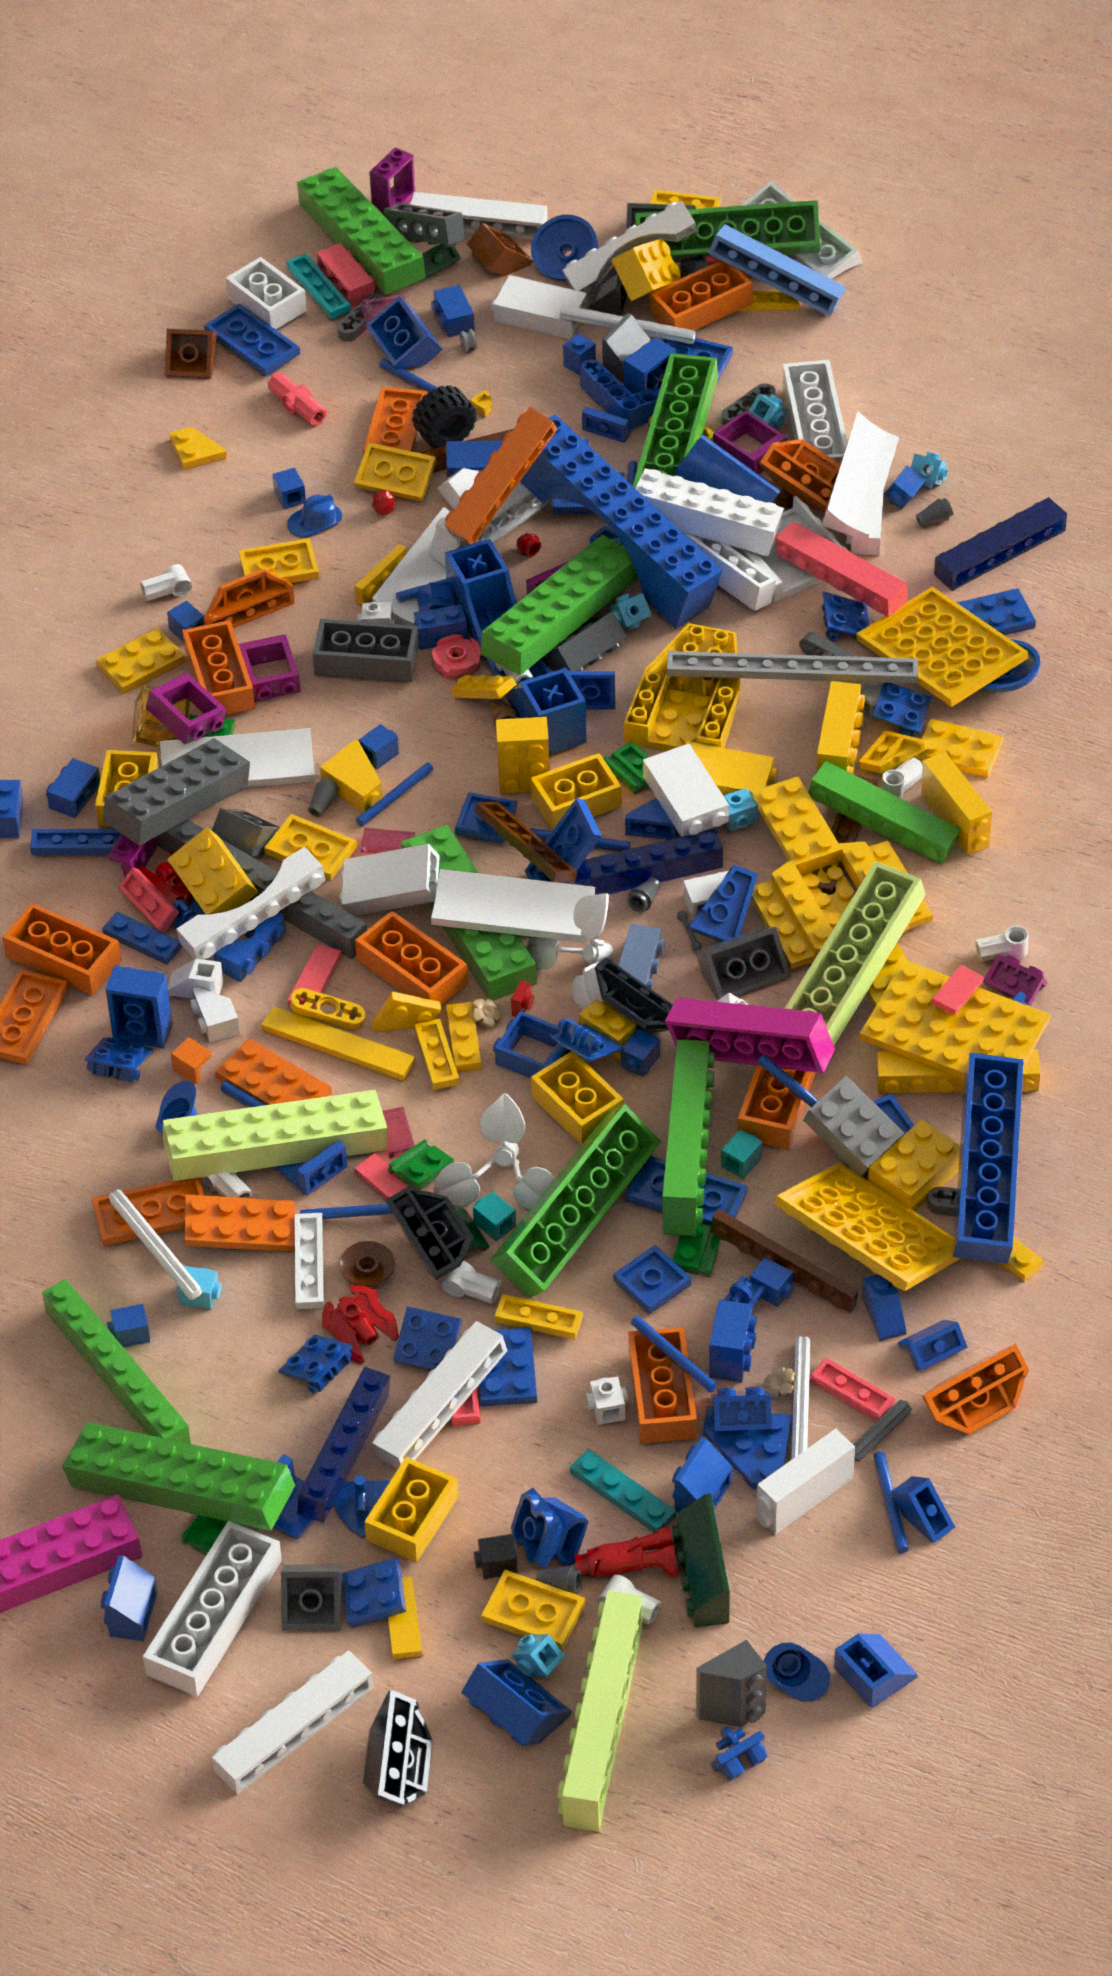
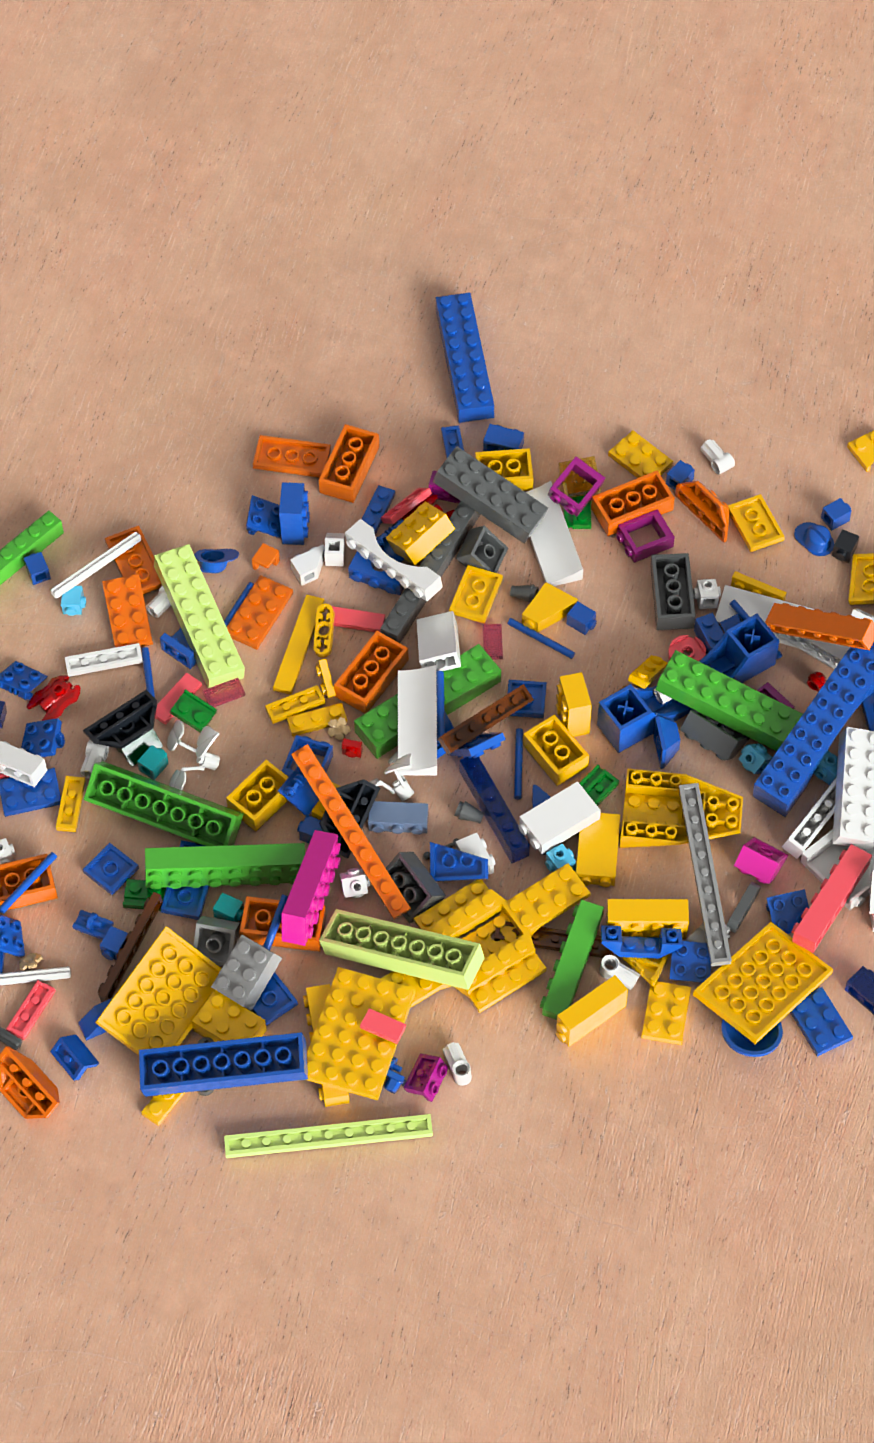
camera: 80 degrees right, 10 degrees up
(340, 485) = (845, 546): none -> black brick
(369, 1256) = (102, 686): reddish brown dish -> none
(383, 502) = (836, 578): red plate -> none
(664, 993) = (350, 831): none -> orange plate
(732, 1341) = (51, 921): blue brick -> none
(772, 629) = (760, 860): none -> dark pink slope
(783, 1165) = (216, 938): none -> light grey slope
(876, 736) = (641, 947): none -> blue slope
(1084, 1087) = (328, 1136): none -> yellowish green plate

